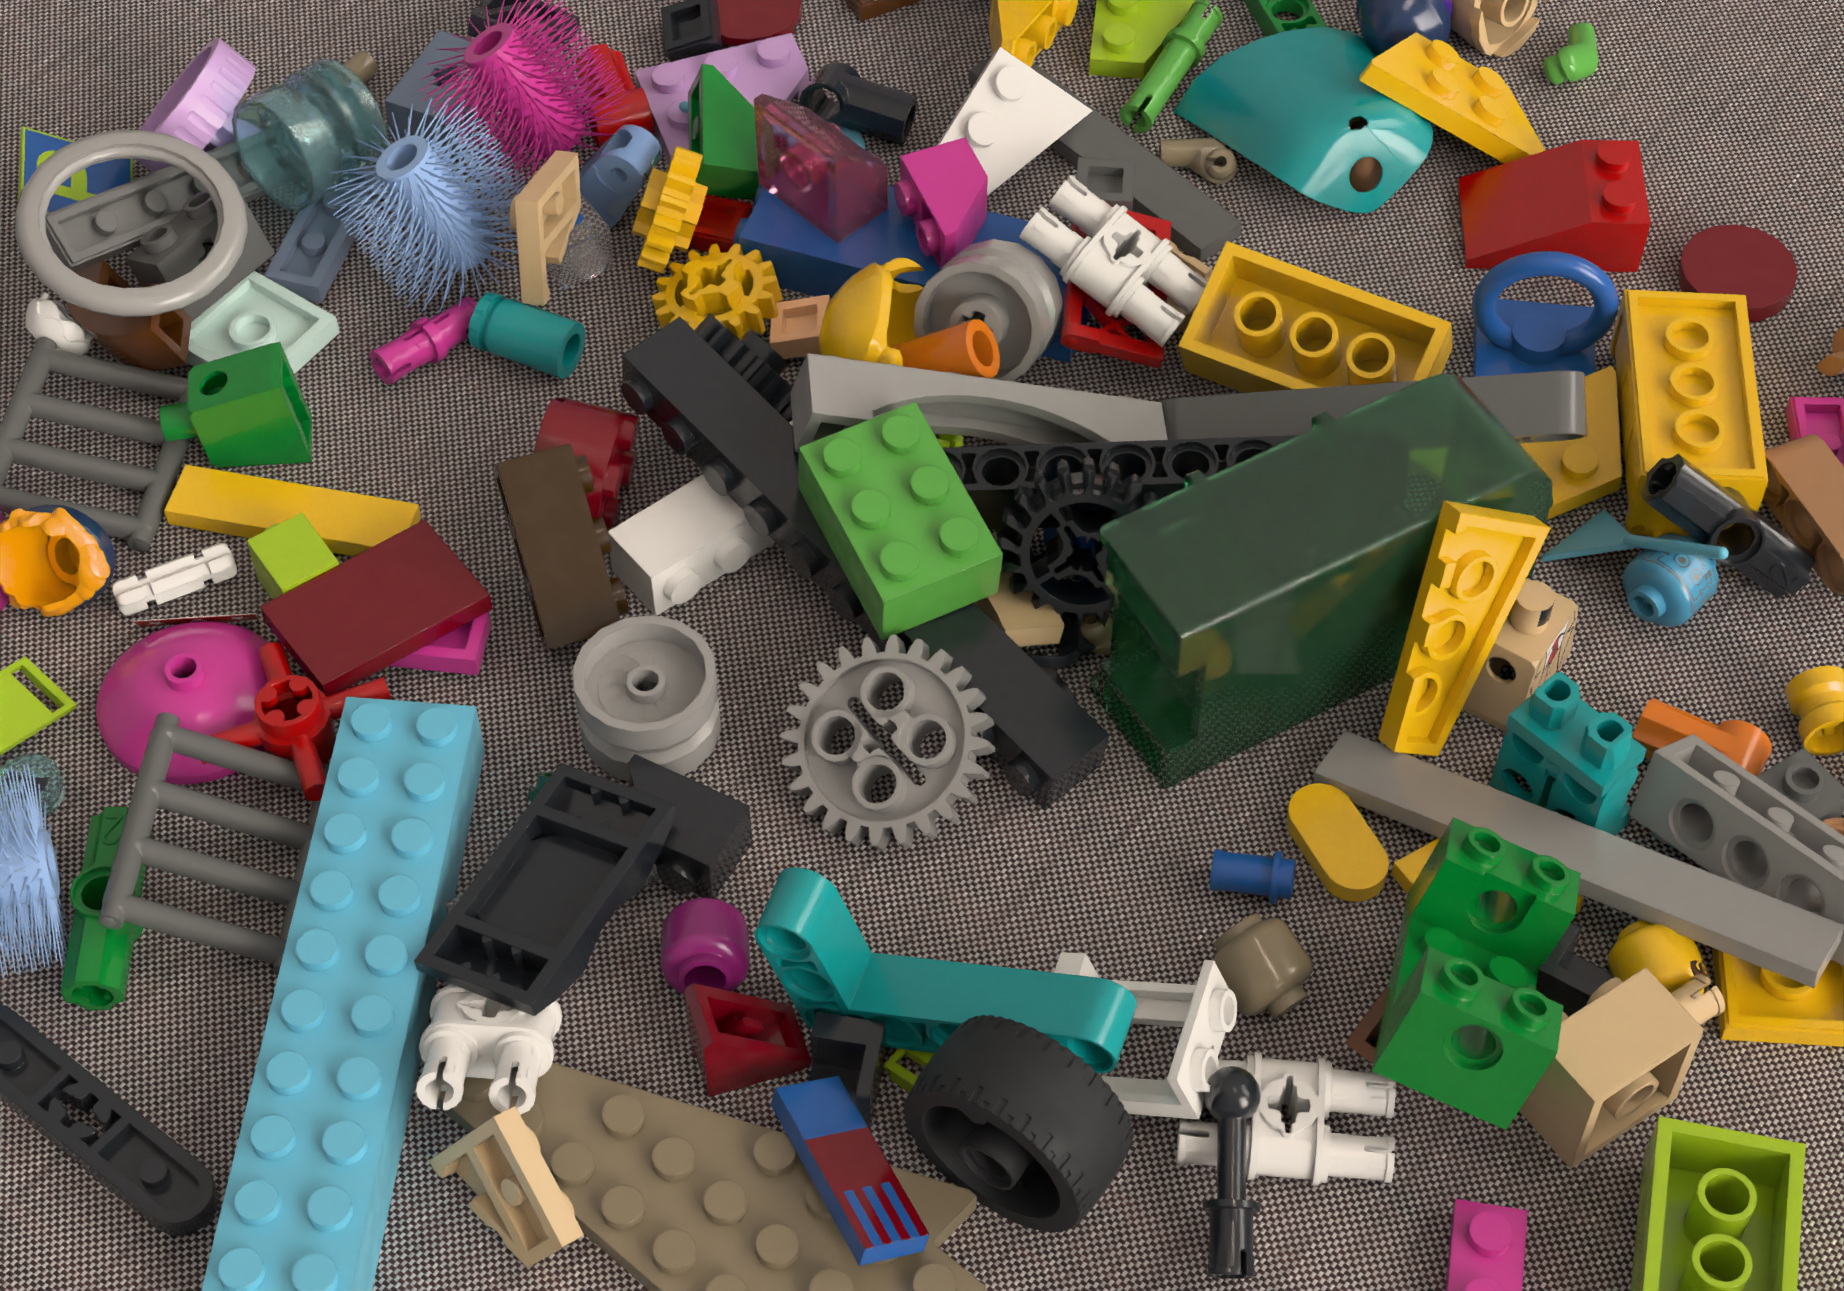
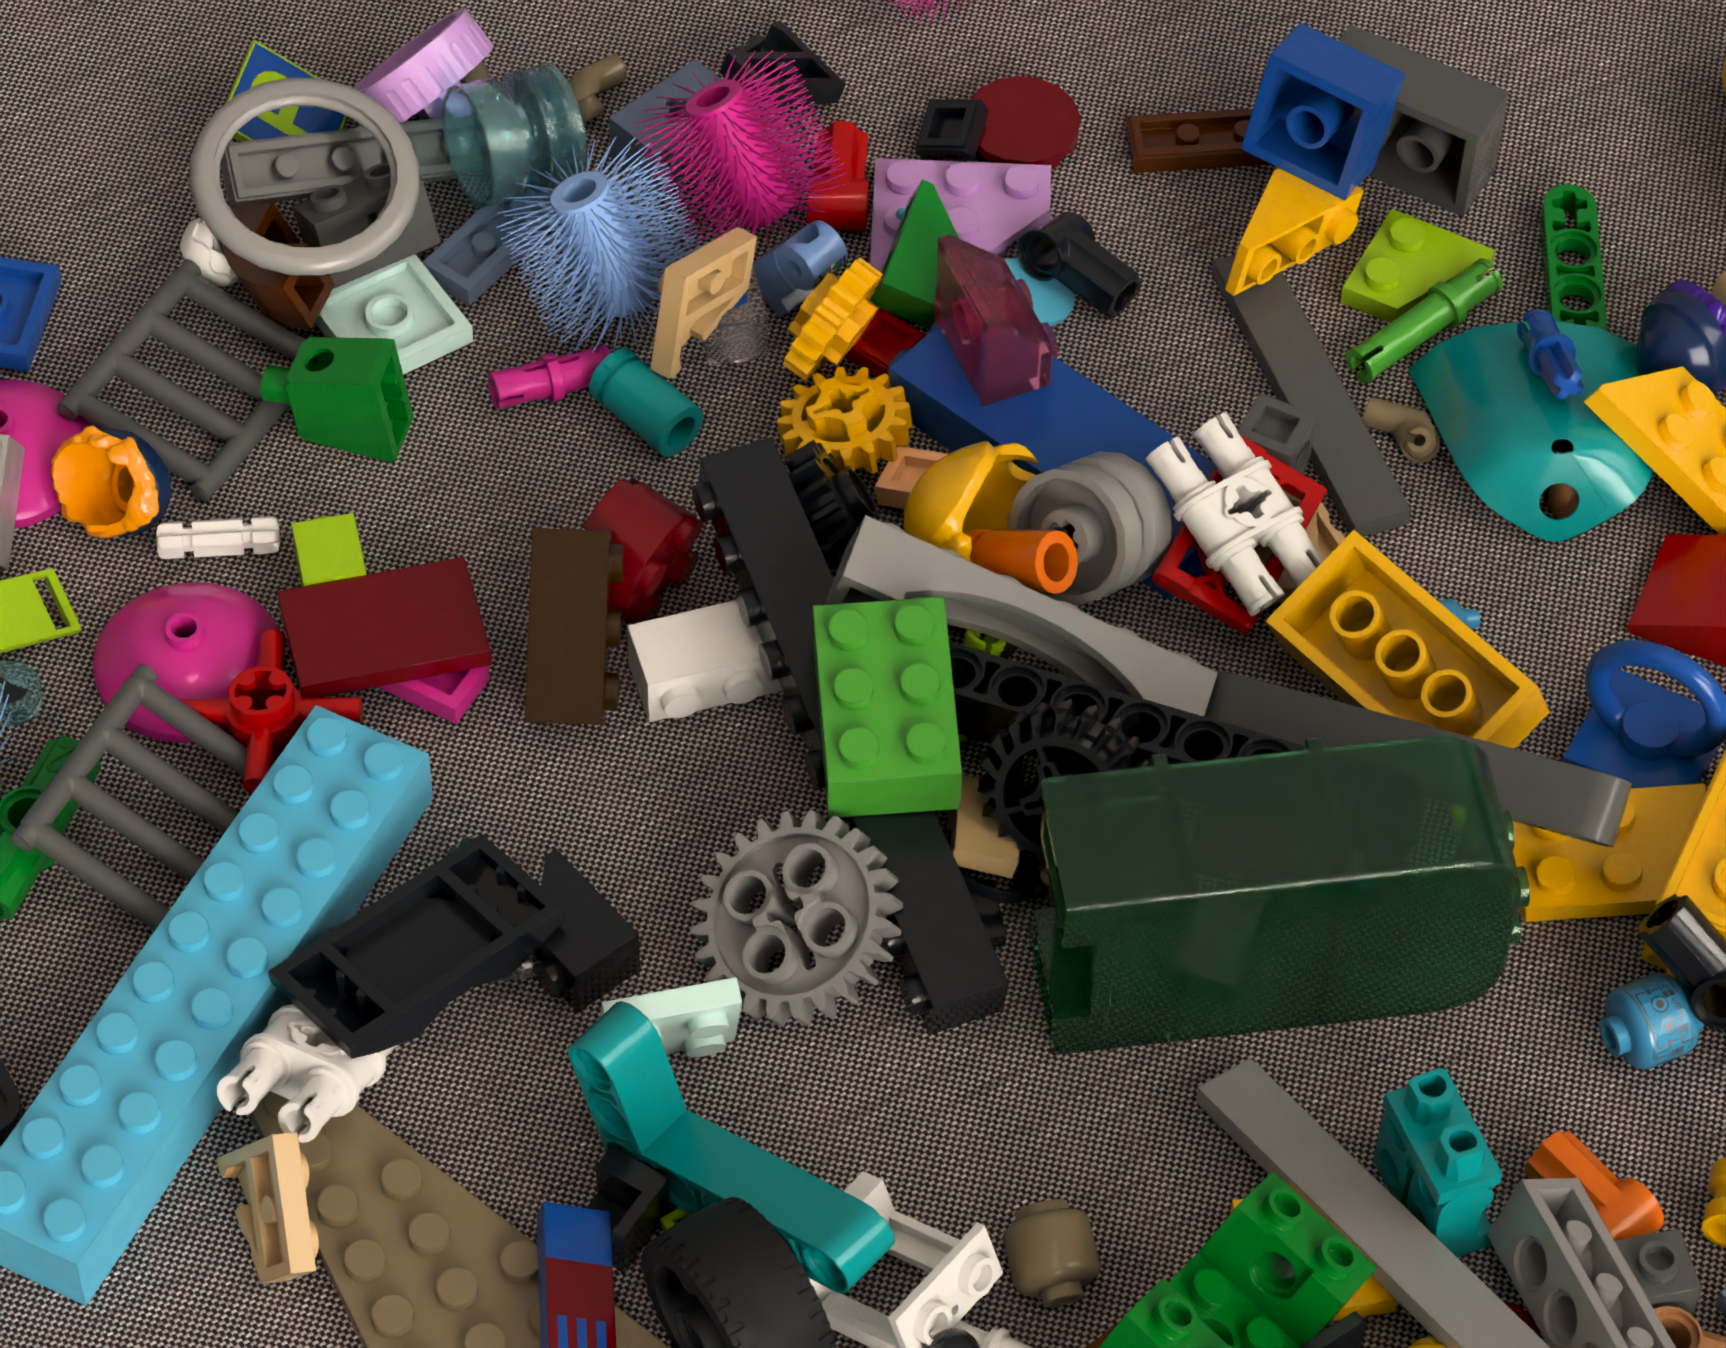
camera: 20 degrees right, 0 degrees up
(174, 621) = (207, 580): red sticker -> none
(250, 504) = (318, 487): yellow tile -> none
(647, 693) = (595, 797): light grey wheel -> none
(705, 945) = (535, 1053): magenta head -> none
(742, 1038) = (539, 1146): dark red slope -> none
(842, 858) = (691, 1017): none -> light aqua plate
(944, 196) = (1104, 392): dark pink slope -> none
(1012, 117) = (1200, 338): white wing -> none
(1253, 874) = (1091, 1164): blue pin -> none
(1309, 52) = (1551, 354): none -> blue axle
(1337, 842) = (1190, 1162): yellow tile -> none
(1461, 605) = (1384, 975): yellow wing -> none
(1532, 640) = (1460, 1027): tan torso -> none
(1607, 535) = (1616, 956): medium azure piece -> none

